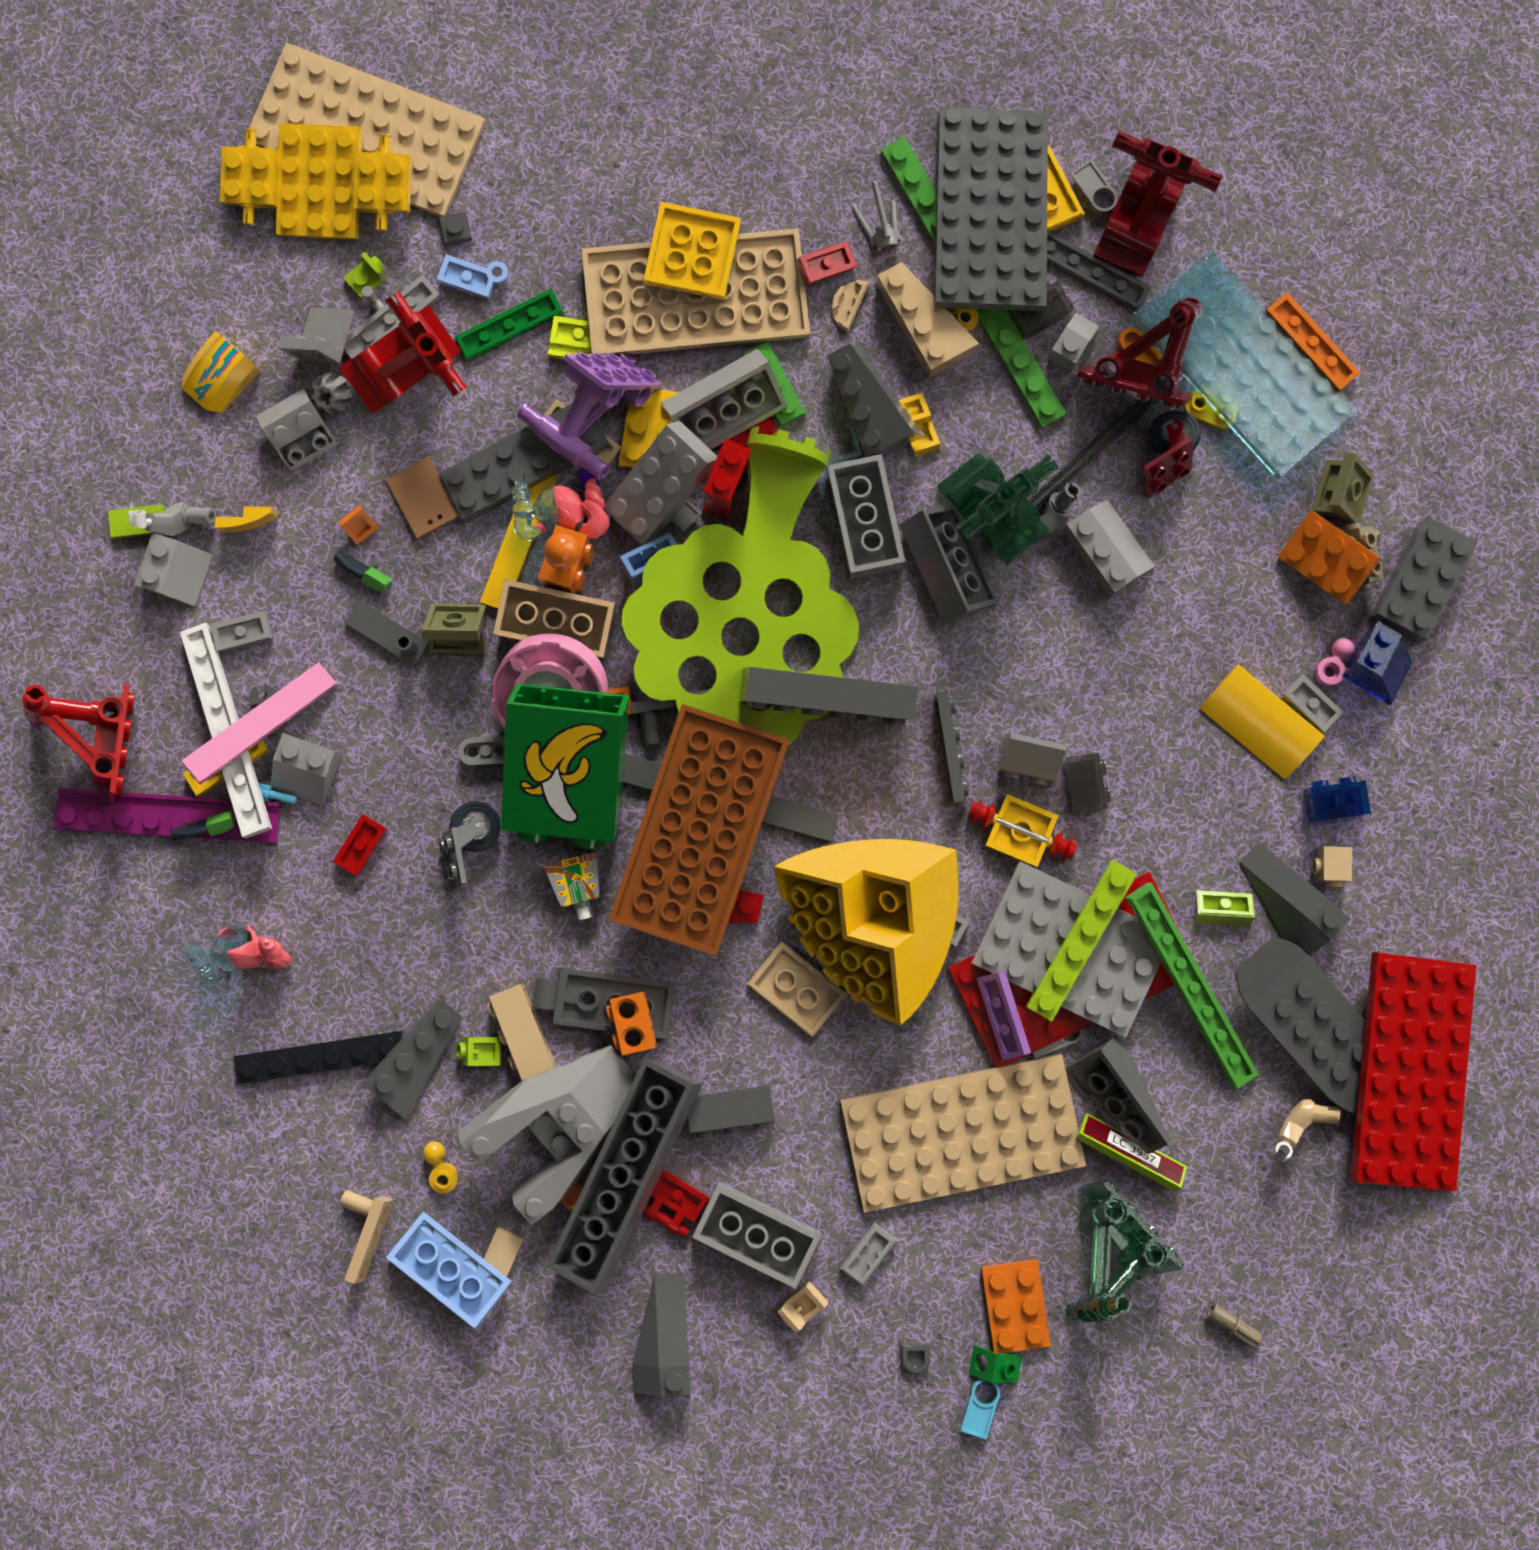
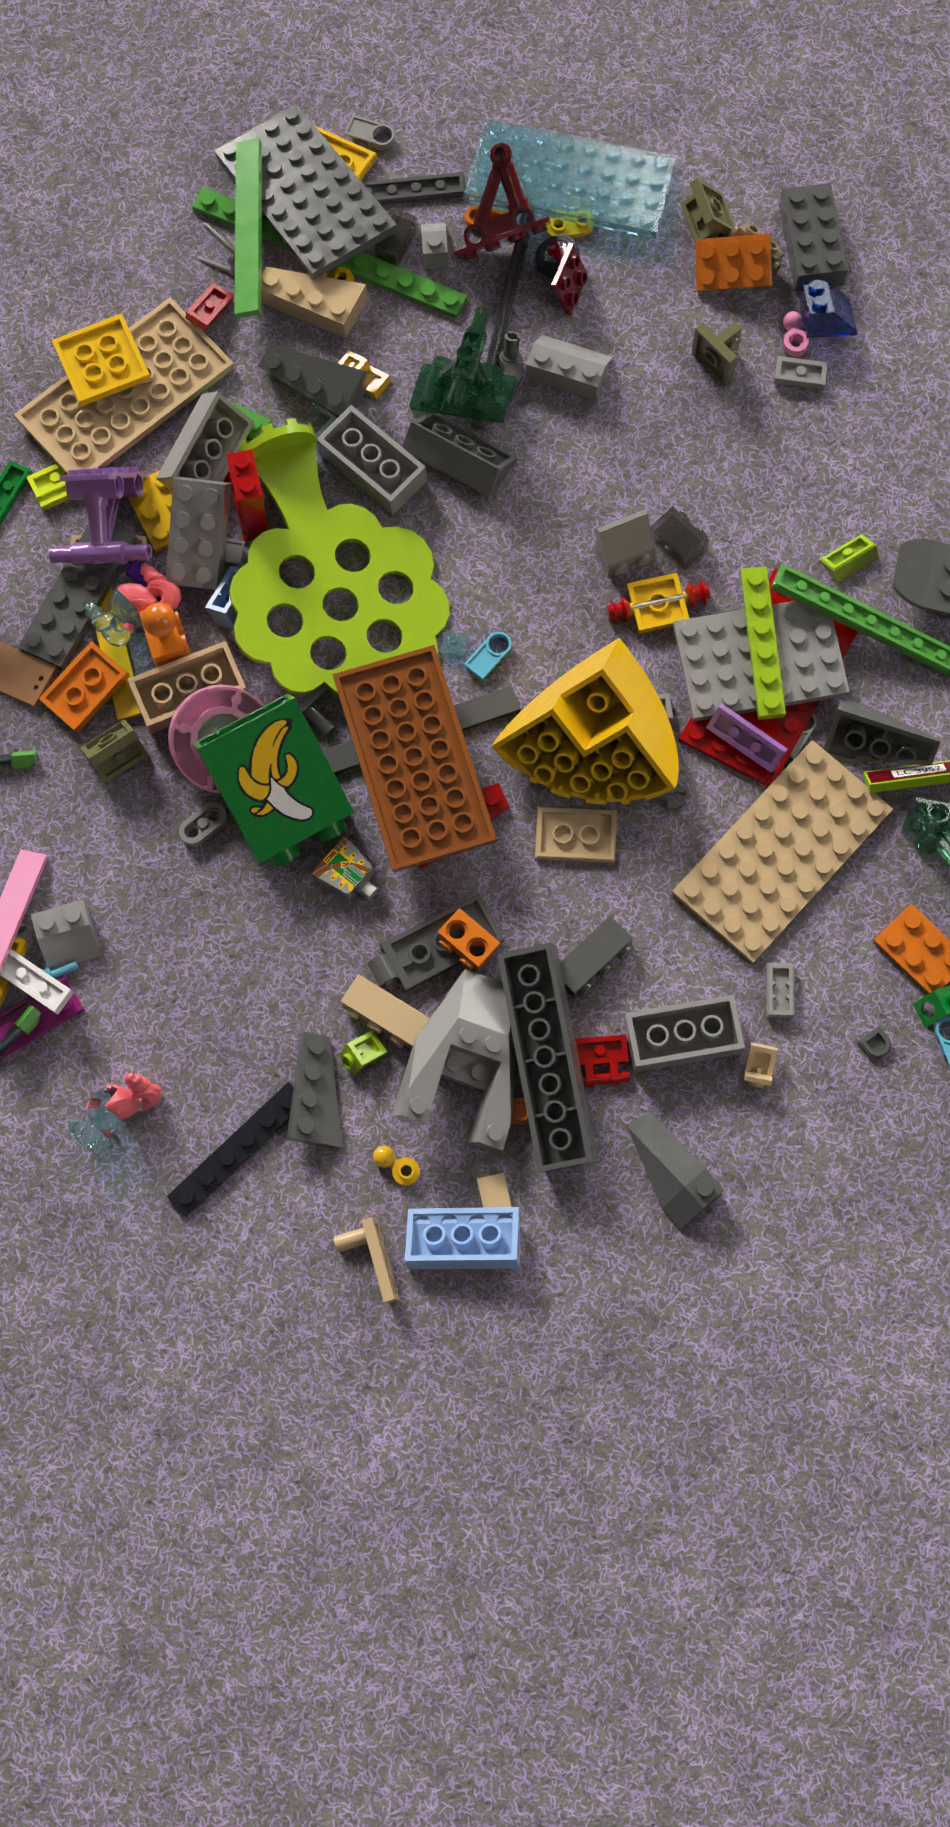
camera: 35 degrees left, 10 degrees down
(360, 845) = (153, 963): red plate -> none
(387, 633) = (61, 791): dark grey piece -> none
(470, 552) = (84, 687): none -> orange plate
(472, 828) = (235, 887): plate -> none
(824, 739) = (457, 650): none -> clear light blue plate
(828, 693) = (438, 597): dark grey brick -> none
(832, 773) = (484, 659): none -> medium azure piece
(847, 302) = (246, 331): tan tile -> none
(912, 212) = (248, 228): none -> bright green tile
(949, 735) = (552, 572): dark grey plate -> none
(1148, 201) = (416, 111): dark red plate -> none
(1250, 636) = (718, 352): none -> olive bracket
(1261, 722) = (774, 409): yellow slope -> none
(1292, 903) = (894, 515): dark grey wedge -> none
(1313, 341) = (608, 132): orange plate -> none
(1333, 865) = (904, 471): tan brick -> none
(1337, 800) = (871, 425): clear blue brick -> none

